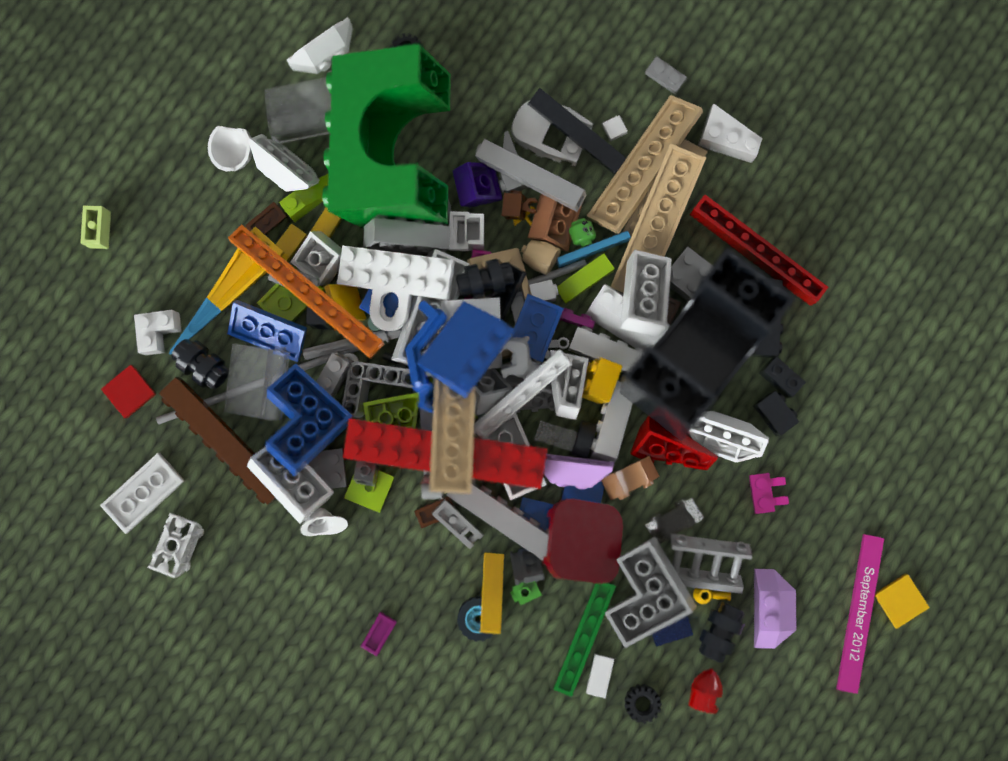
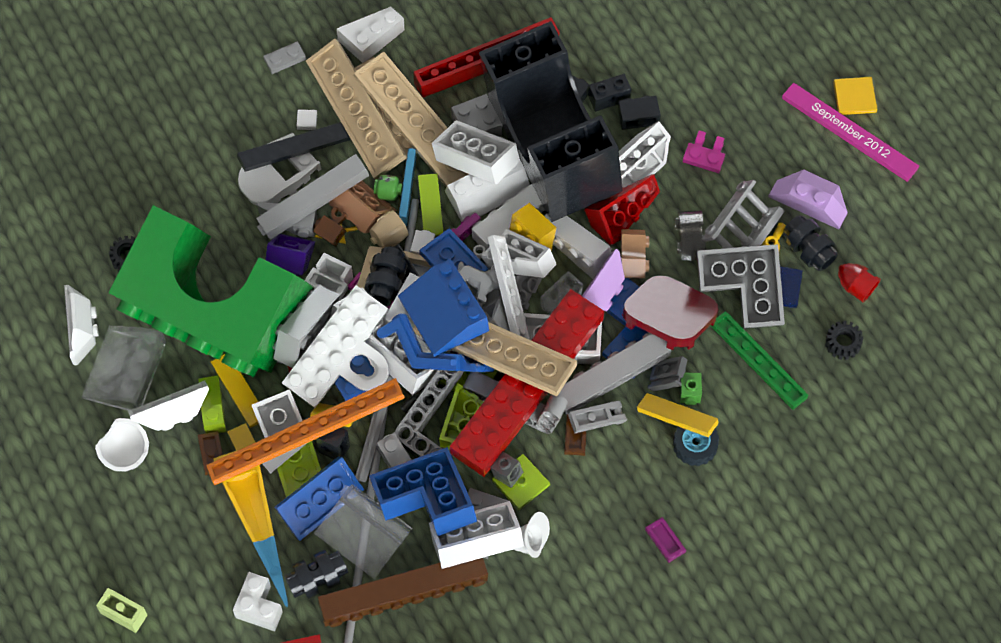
camera: 65 degrees left, 20 degrees down
(584, 439) = (579, 268): black tyre -> none
(599, 675) = (801, 365): white tile -> none

